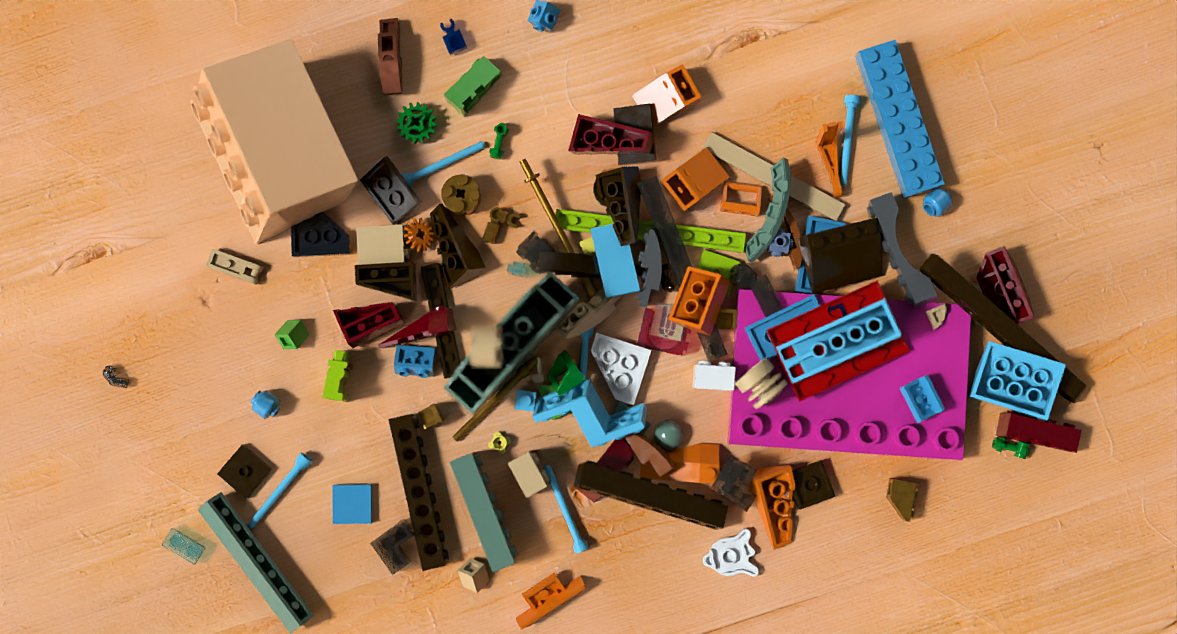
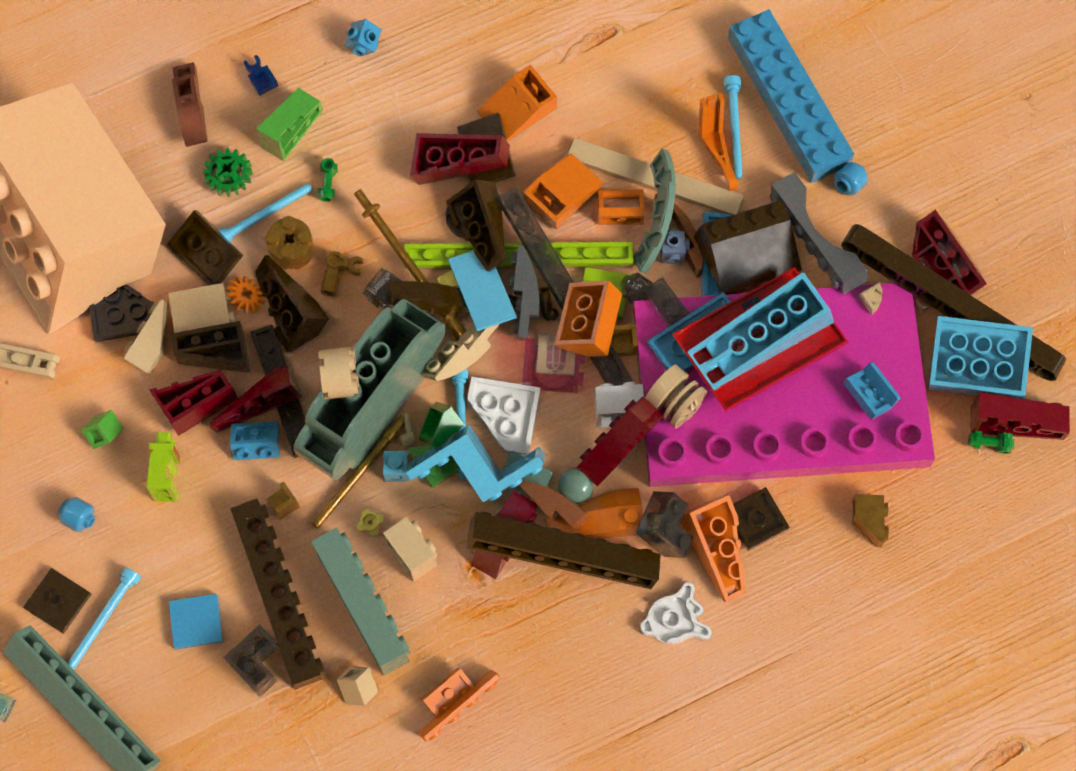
camera: 15 degrees left, 15 degrees down
(337, 268) = (149, 344): none -> tan slope
(518, 269) = (365, 314): clear light blue plate -> none
(579, 543) = (485, 629): medium azure piece -> none
(710, 411) = (619, 441): none -> dark red wedge

